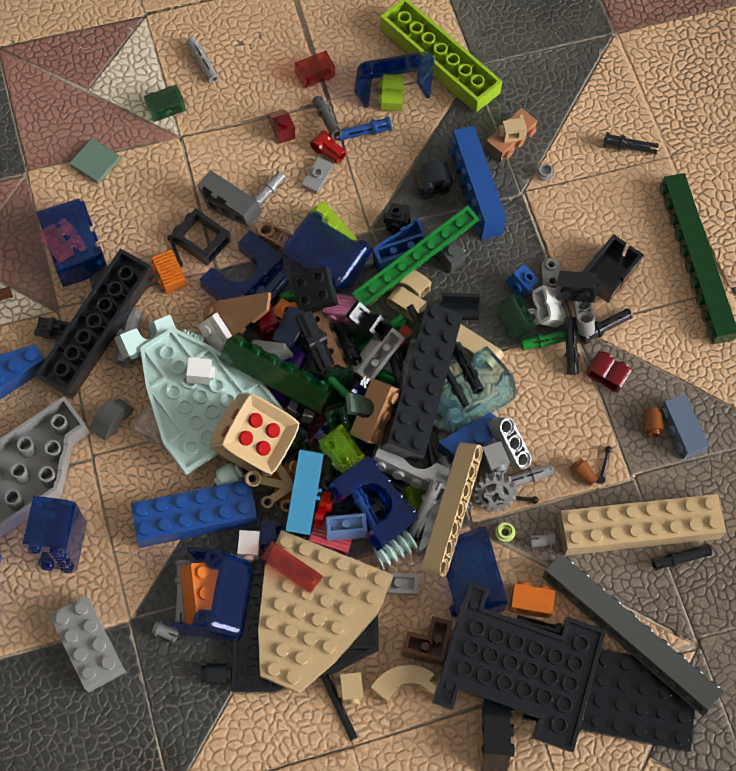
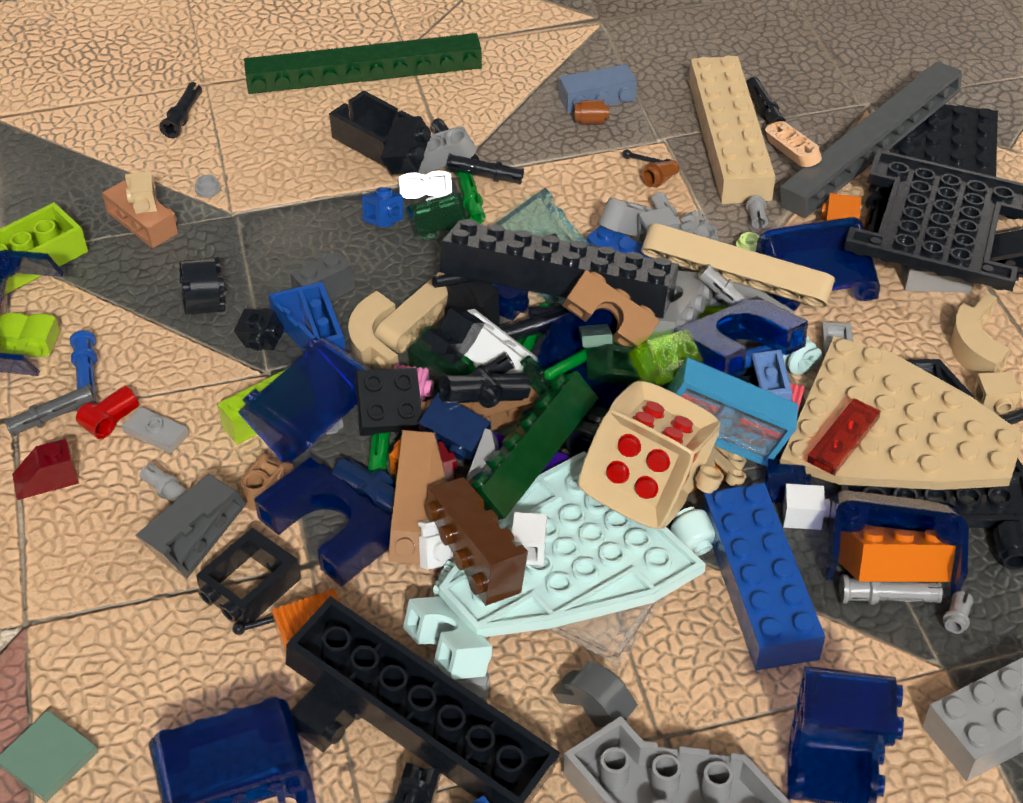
camera: 85 degrees left, 20 degrees down
(57, 245) = (255, 758): clear pink plate -> none
(192, 338) = (477, 542): none -> reddish brown wedge
(415, 256) = (344, 294): green plate -> none
(431, 647) = (919, 305): reddish brown brick -> none
(462, 303) = (413, 272): black panel -> none
(477, 182) = (234, 233): blue brick -> none
(548, 273) = (361, 186): light grey plate -> none
(608, 371) = (521, 143): dark red brick -> none
(619, 572) = (793, 144): none -> light nougat beam

